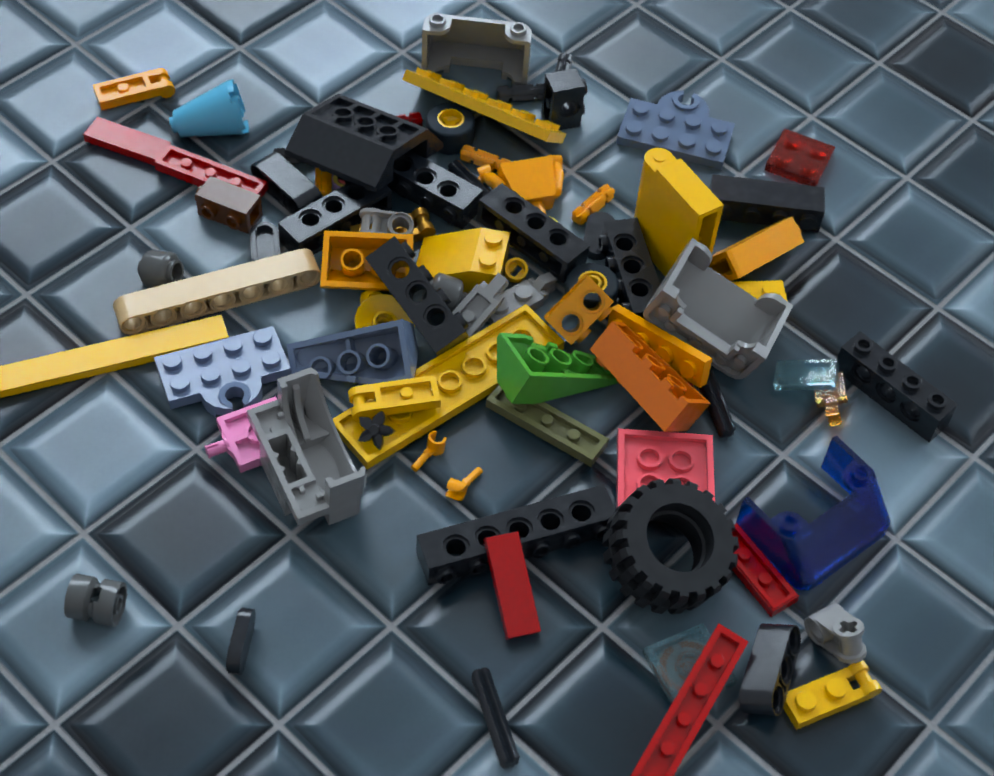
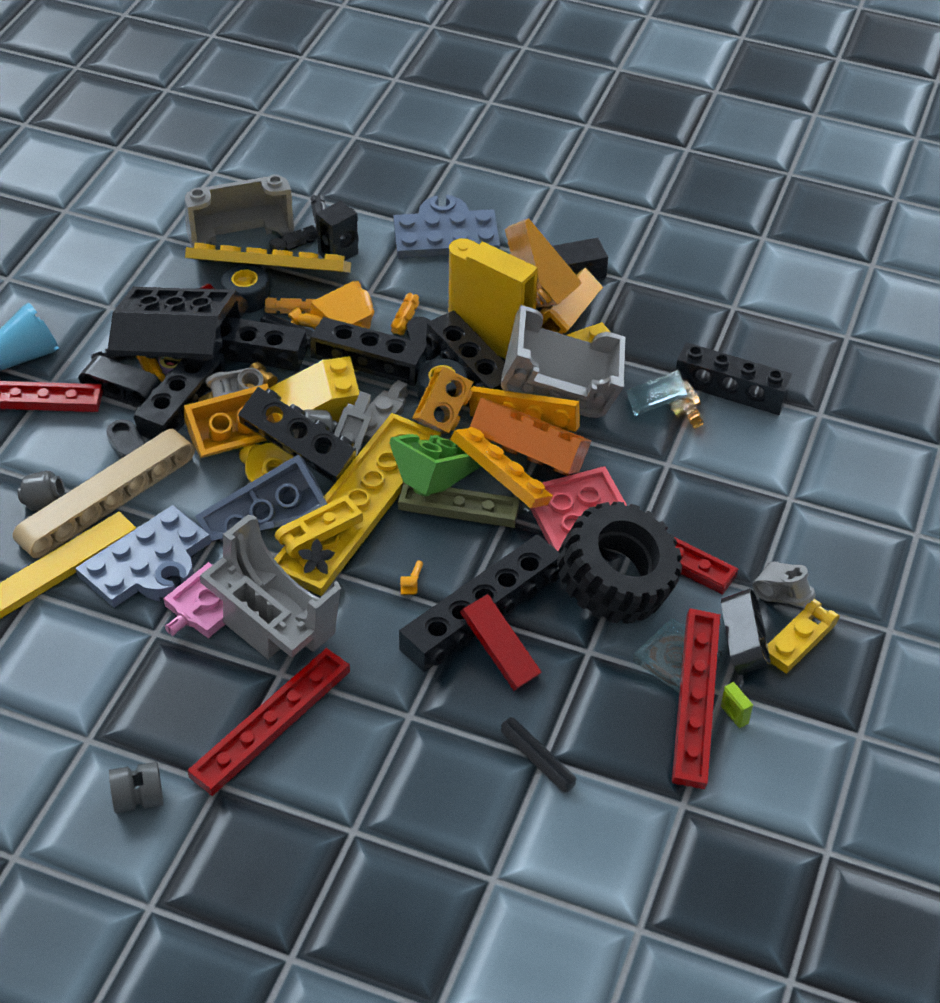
camera: 20 degrees left, 5 degrees down
(228, 204) = (74, 415): brick -> none
(240, 641) = (286, 773): black tile -> none
(253, 580) = (268, 722): none -> red plate
(432, 448) = (369, 559): light orange hand -> none
(511, 266) = (367, 380): yellow hinge -> none
(602, 401) = (506, 471): none -> light orange plate
(718, 407) = (598, 445): black axle -> none
(721, 745) = (736, 705): none -> lime tile
(739, 217) = (554, 276): none -> light orange slope
(799, 158) = (562, 221): clear red plate -> none
(816, 550) = (732, 527): clear blue windscreen -> none

